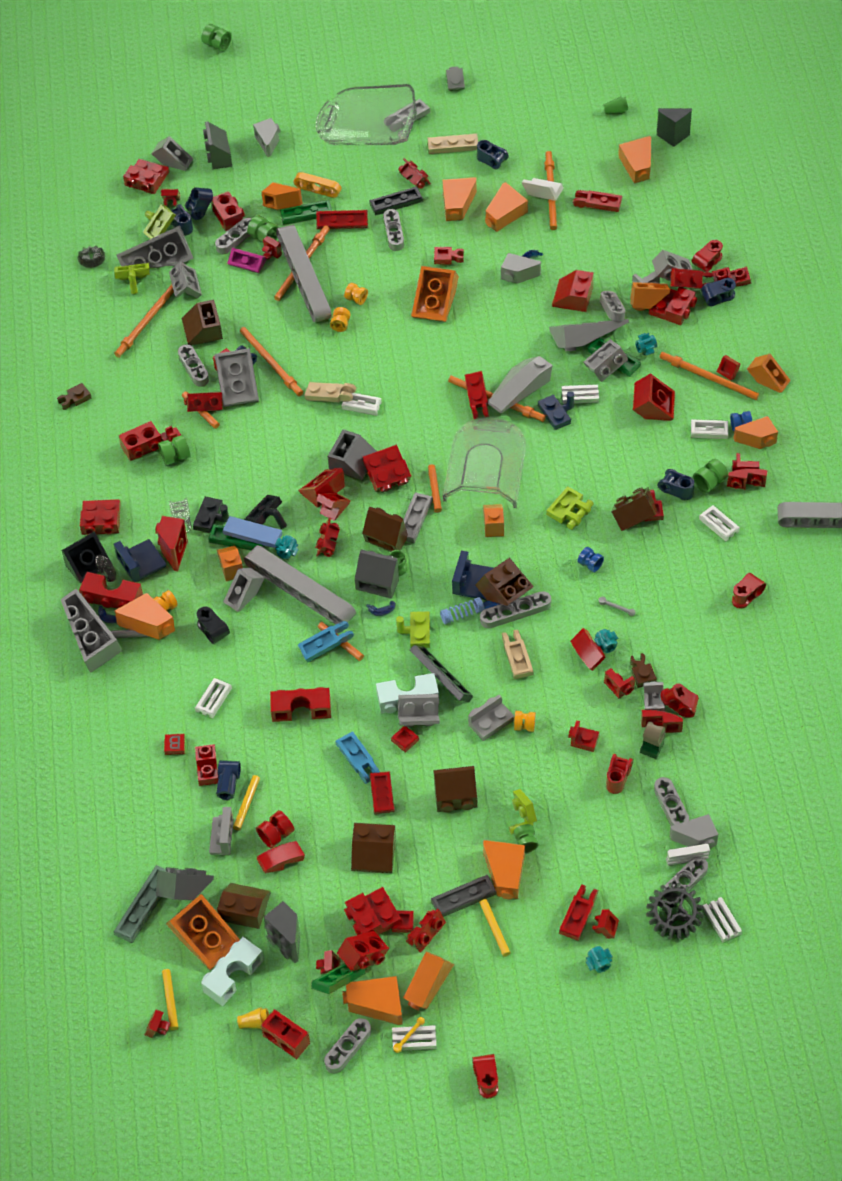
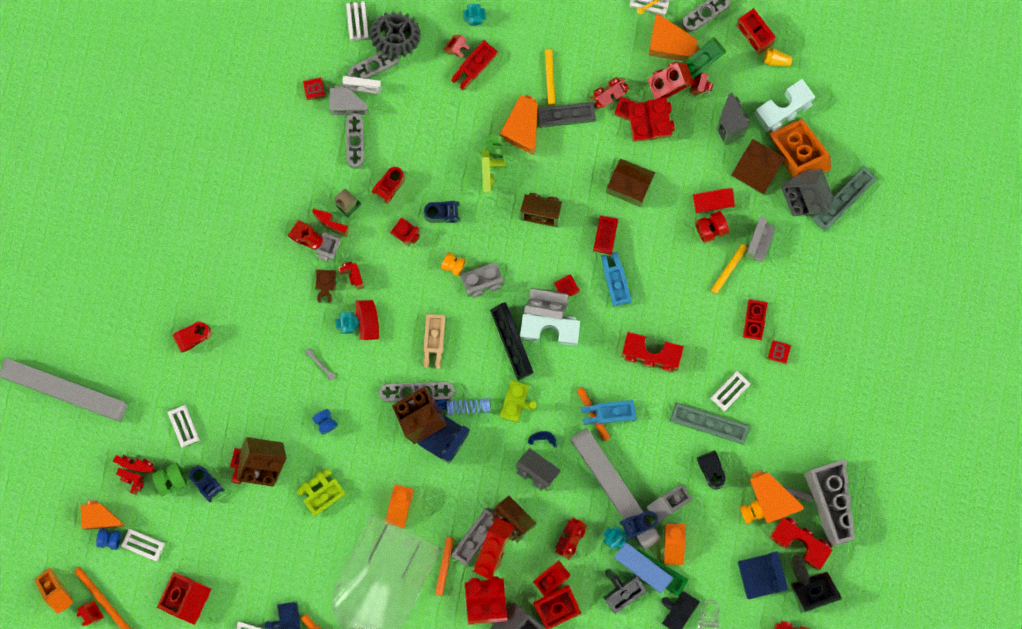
camera: 165 degrees left, 25 degrees up
(105, 617) = (808, 518): clear blue piece -> none
(157, 1025) = (860, 79): red tile -> none
(170, 1001) = (842, 101): yellow bar -> none
(172, 539) = (728, 579): red slope -> none
(225, 666) = (709, 423): none -> sand green tile
(228, 774) = (739, 298): dark blue piece -> none
(266, 554) = (637, 524): none -> dark blue piece
(393, 496) = (492, 549): none -> red arch
(402, 565) = (514, 480): bright green wheel -> none
(427, 980) = (622, 42): orange slope -> none
(553, 763) = (444, 212): none -> dark blue piece
(736, 840) = (313, 88): none -> red tile

